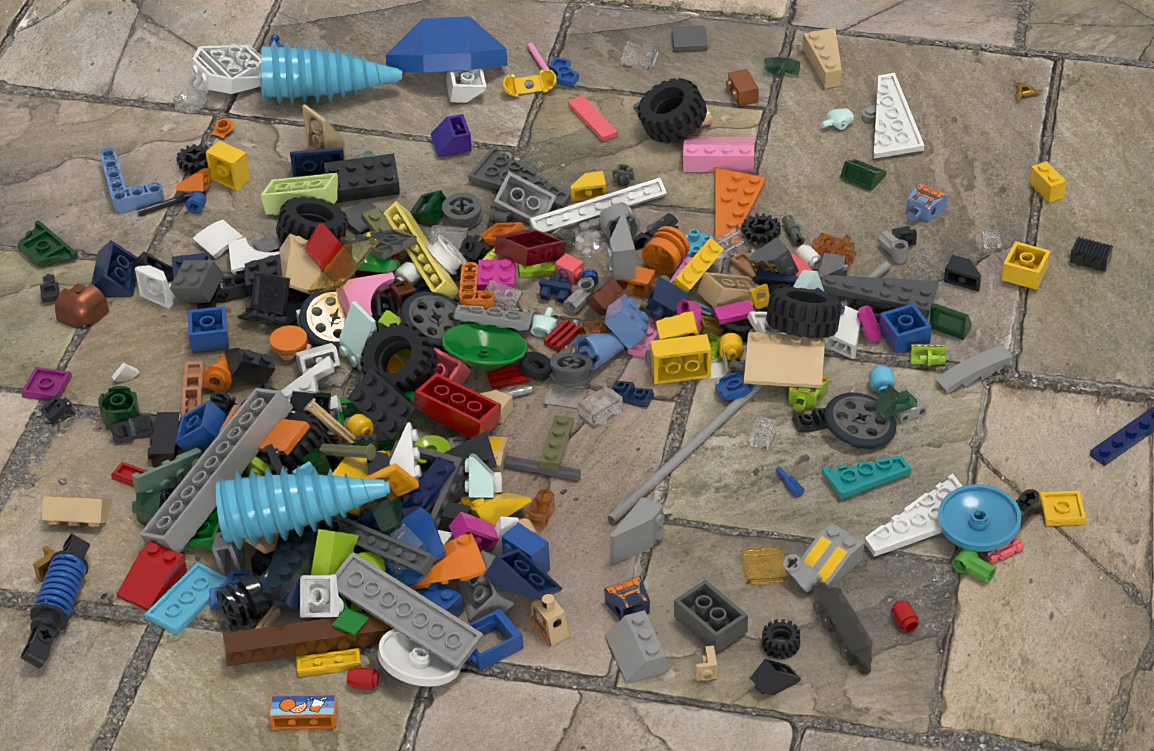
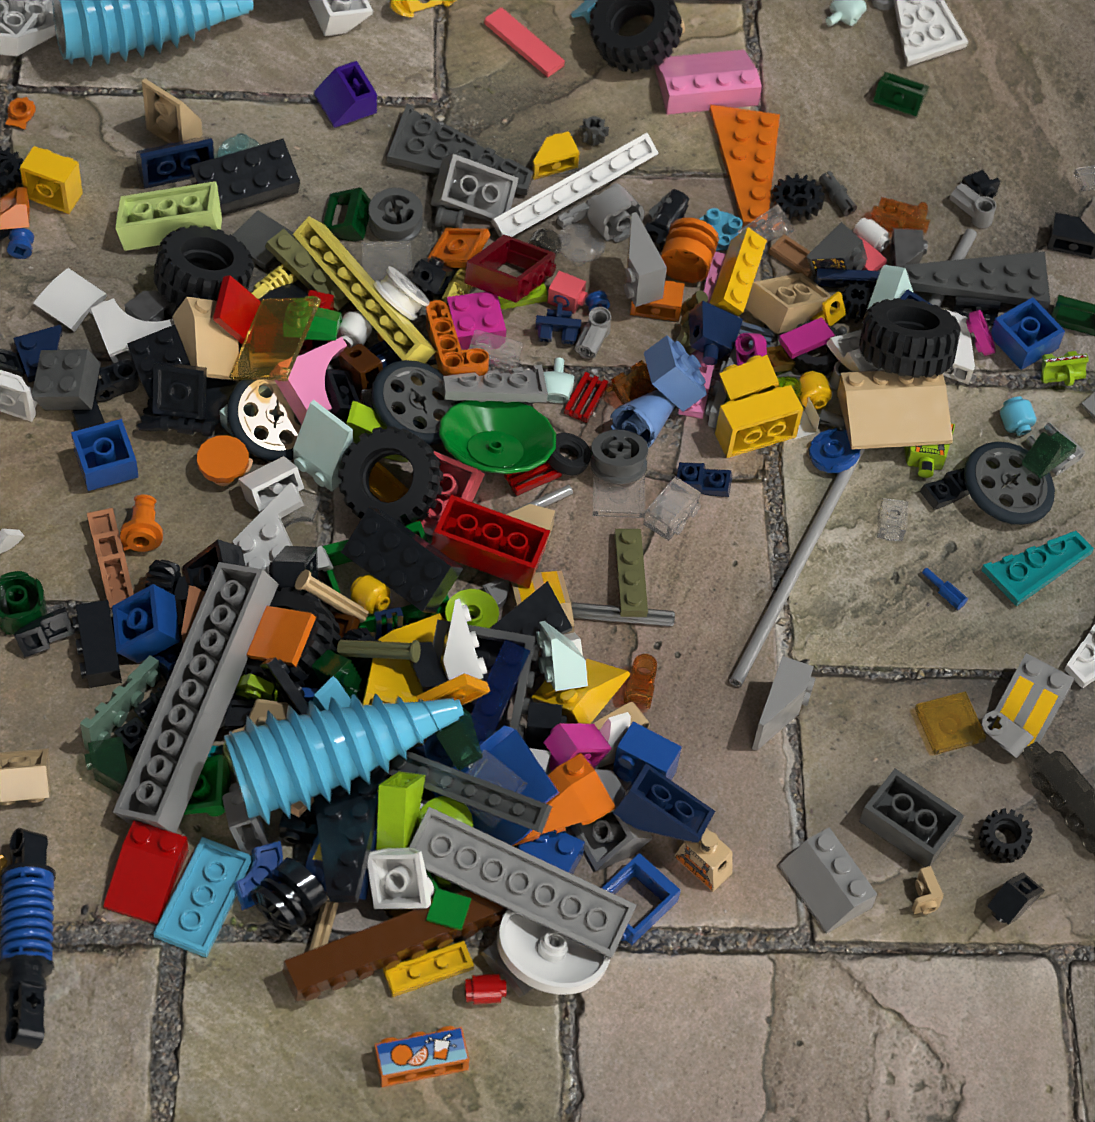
camera: 20 degrees left, 15 degrees up
(124, 472) = (66, 707): red tile -> none
(249, 365) = (182, 508): black slope -> none
(390, 242) = (319, 280): dark grey wing -> none
(607, 295) = (635, 333): copper brick -> none
(627, 597) = (797, 807): torso -> none
(925, 203) = (994, 132): medium blue torso -> none

